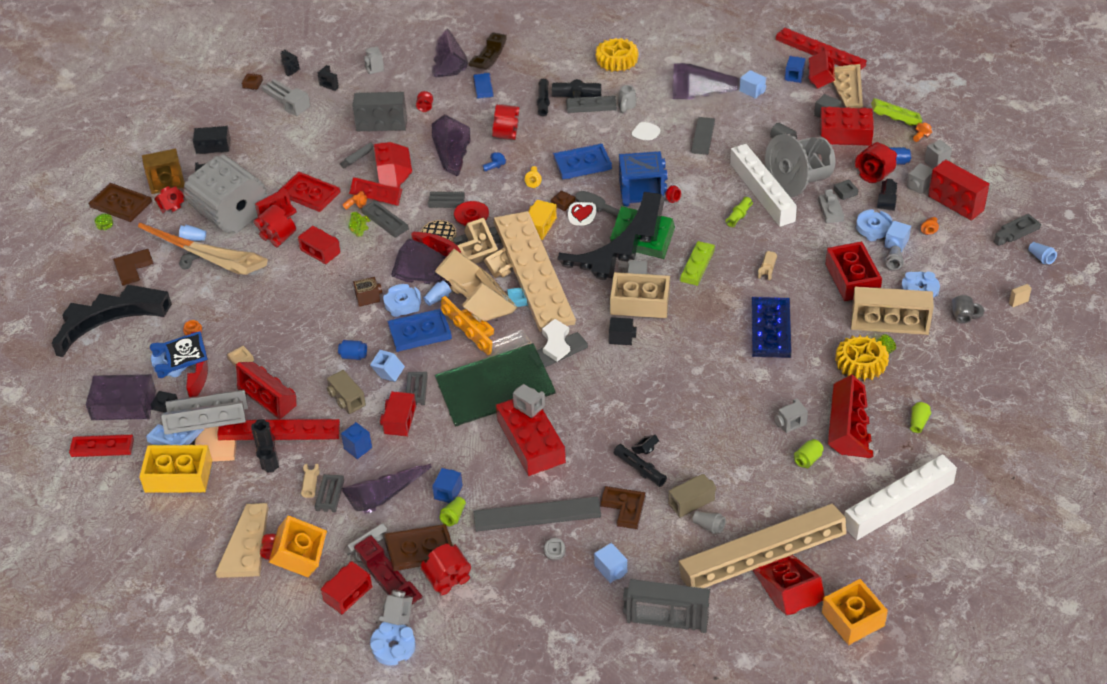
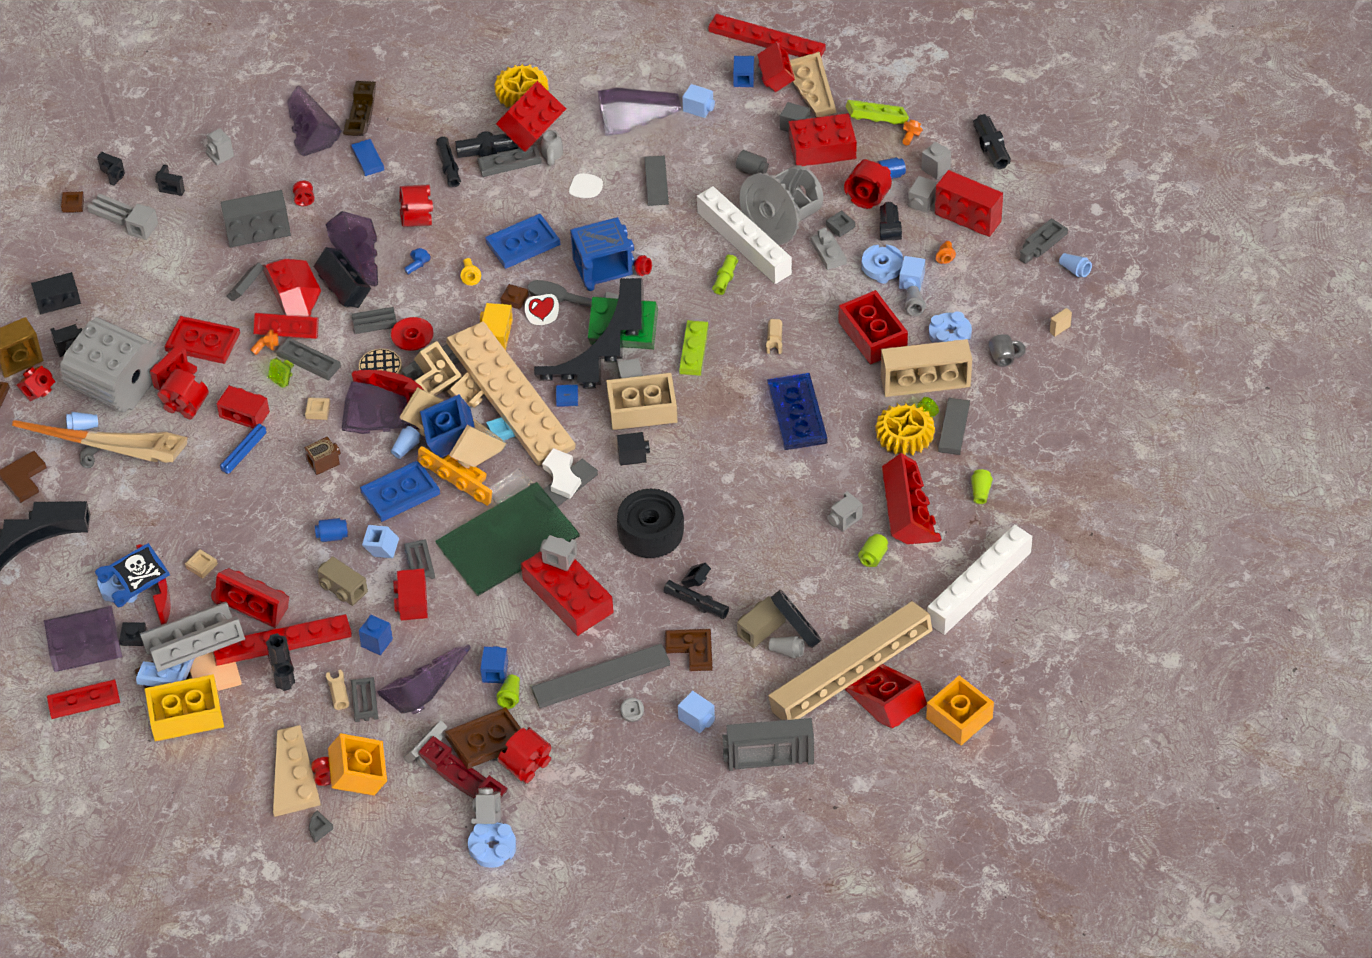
camera: 15 degrees left, 5 degrees up
(192, 326) = (130, 539): orange plate -> none
(250, 594) = (319, 826): none -> dark grey tile
(307, 276) = (243, 448): none -> blue axle
(346, 587) = (422, 797): red brick -> none
(378, 256) = (317, 408): none -> tan tile
(409, 305) = (370, 467): light blue plate -> none
(430, 163) = (342, 277): none -> black brick
(467, 278) = (445, 424): none -> blue brick
(581, 281) = (566, 395): none -> blue tile
(614, 72) = (531, 116): none -> red brick
(618, 393) = (650, 523): none -> black wheel
(722, 498) = (796, 618): none -> black beam
(906, 363) = (954, 426): none -> dark grey tile
(988, 149) = (991, 141): none -> black piece

